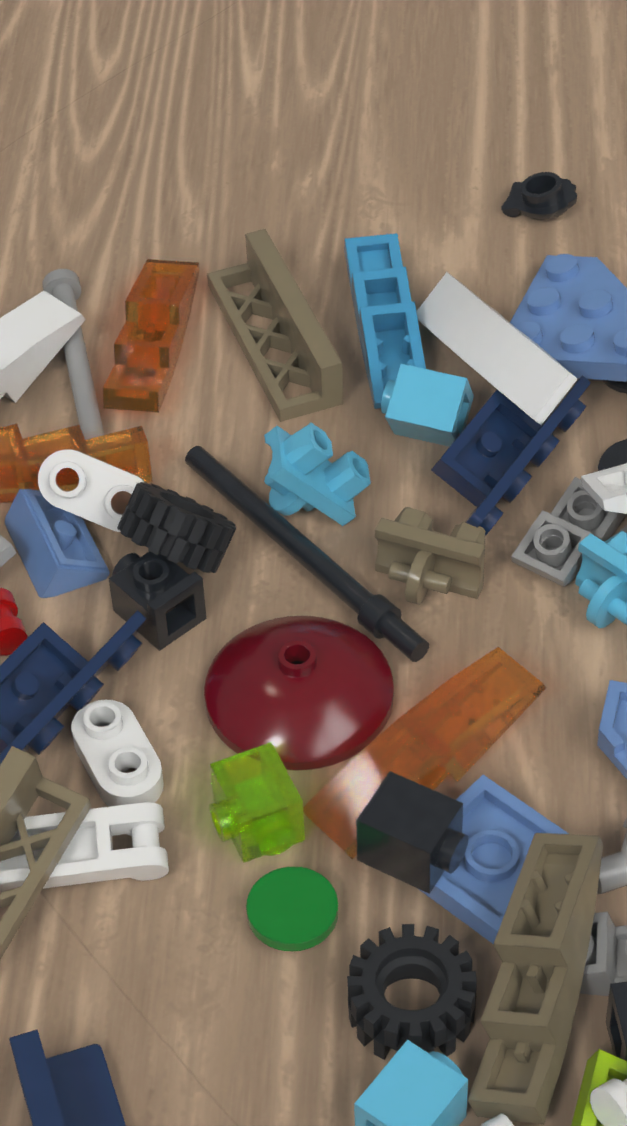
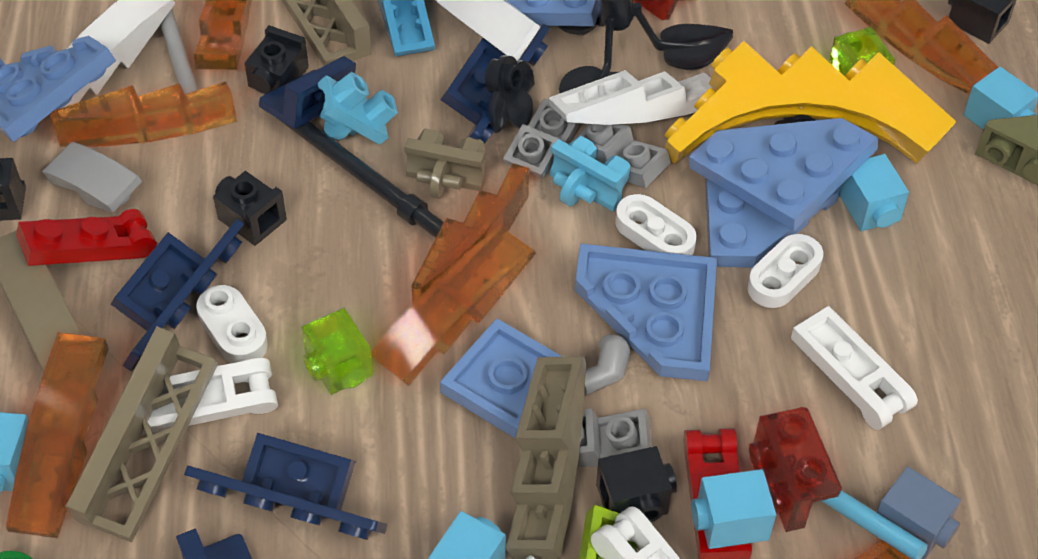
camera: 10 degrees left, 5 degrees up
(53, 545) = (168, 171): medium blue slope -> none
(95, 489) = (196, 131): white plate -> none
(176, 527) = (259, 155): black tyre -> none
(184, 972) = (294, 477): none -> dark blue bracket
(214, 406) = (276, 60): none -> black brick
(242, 456) = (301, 98): none -> dark blue panel
(292, 908) = (369, 425): green piece -> none
(302, 686) = (366, 281): dark red dish -> none
(411, 832) = (450, 364): black brick -> none
(411, 959) = (459, 453): black tyre -> none
(427, 404) = (433, 52): medium azure brick -> none
(477, 633) = (484, 217): none -> clear orange slope
(528, 459) = (510, 85): none -> black plate

